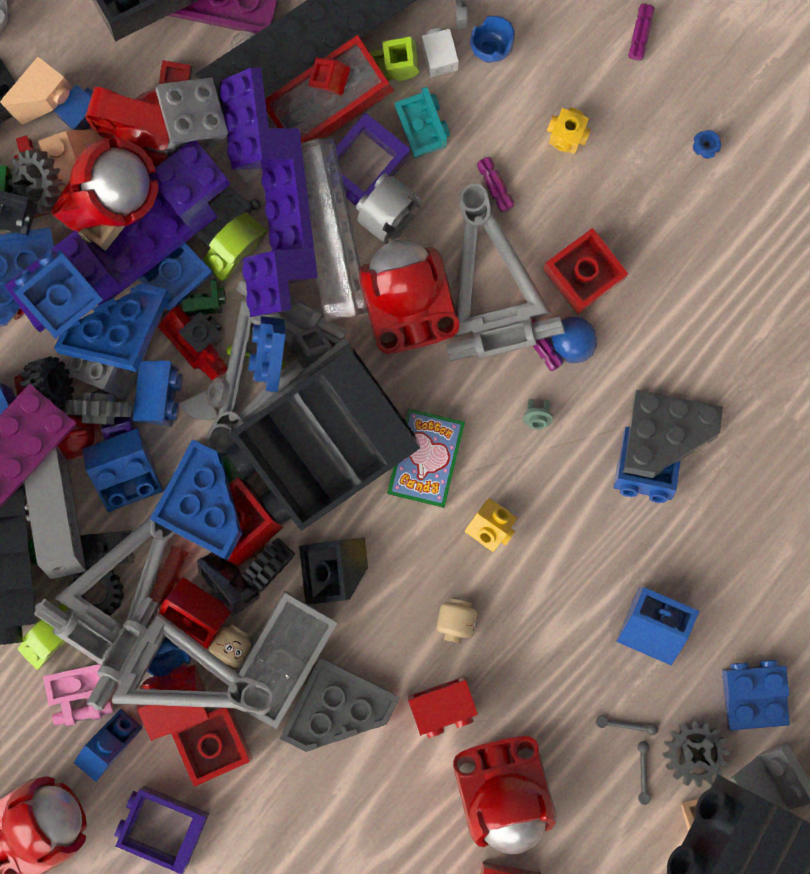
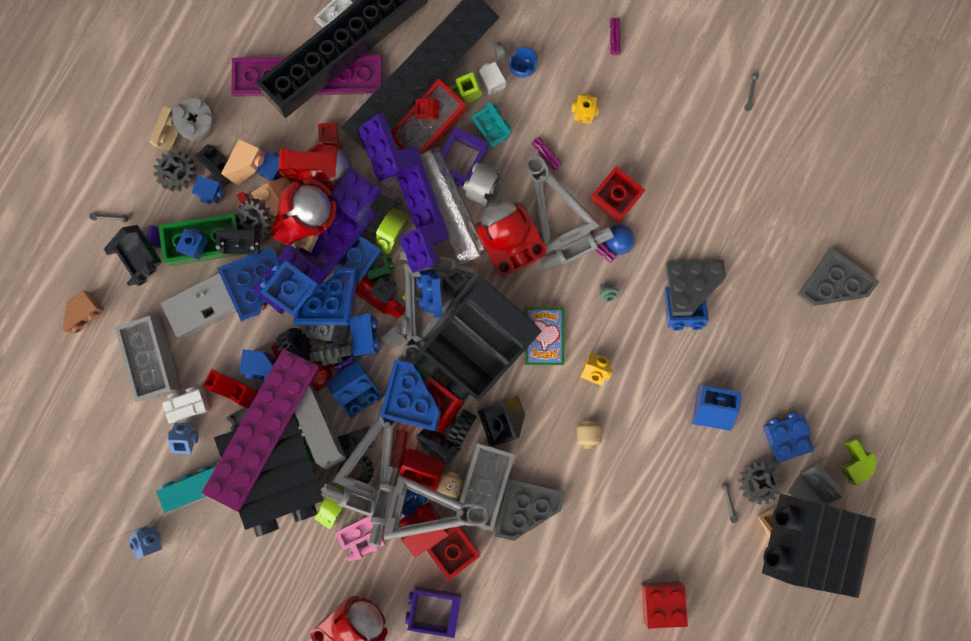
camera: 10 degrees left, 0 degrees up
(107, 745) = (386, 566): blue slope -> none
(192, 111) = (345, 151): light grey bracket -> none
(443, 707) = (594, 491): red brick -> none
(505, 795) = (647, 538): red piece -> none
(602, 722) = (695, 476): dark grey hinge -> none
(713, 140) = (673, 92): blue plate -> none

